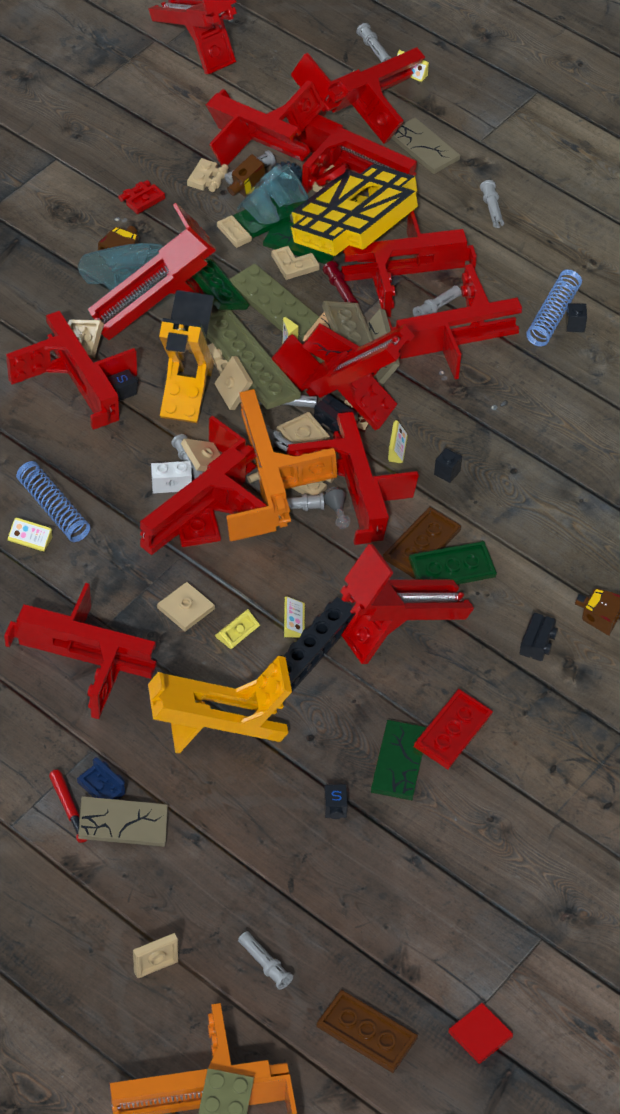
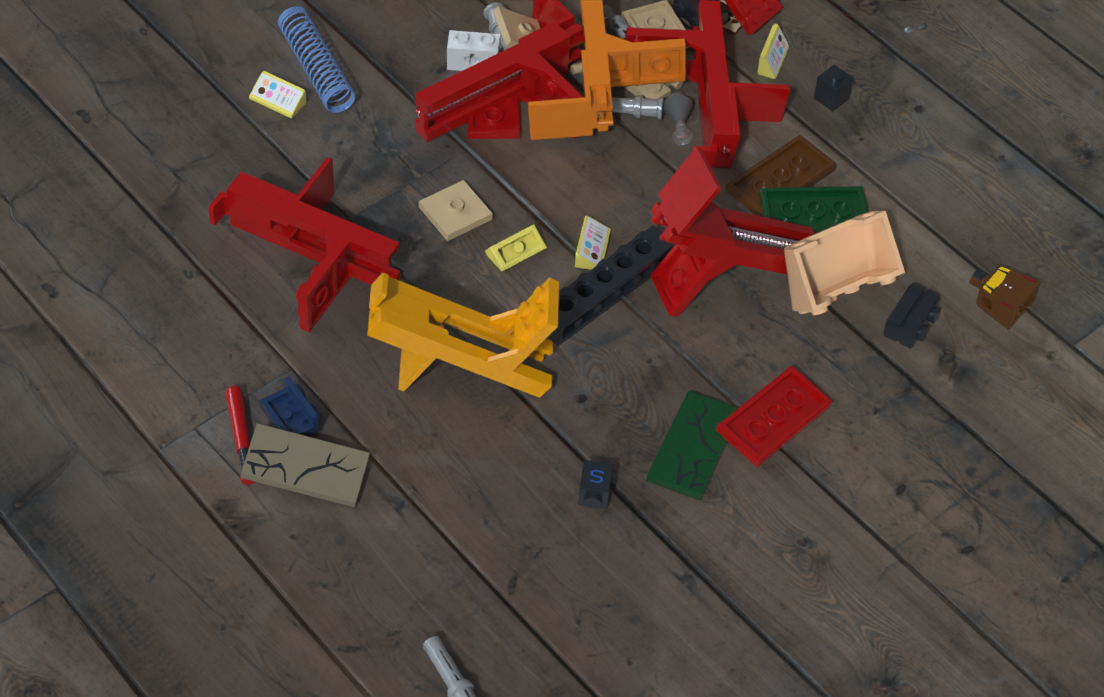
camera: 10 degrees right, 0 degrees up
(155, 955) = (303, 647): tan plate -> none
(480, 604) = (841, 261): none -> light nougat windscreen

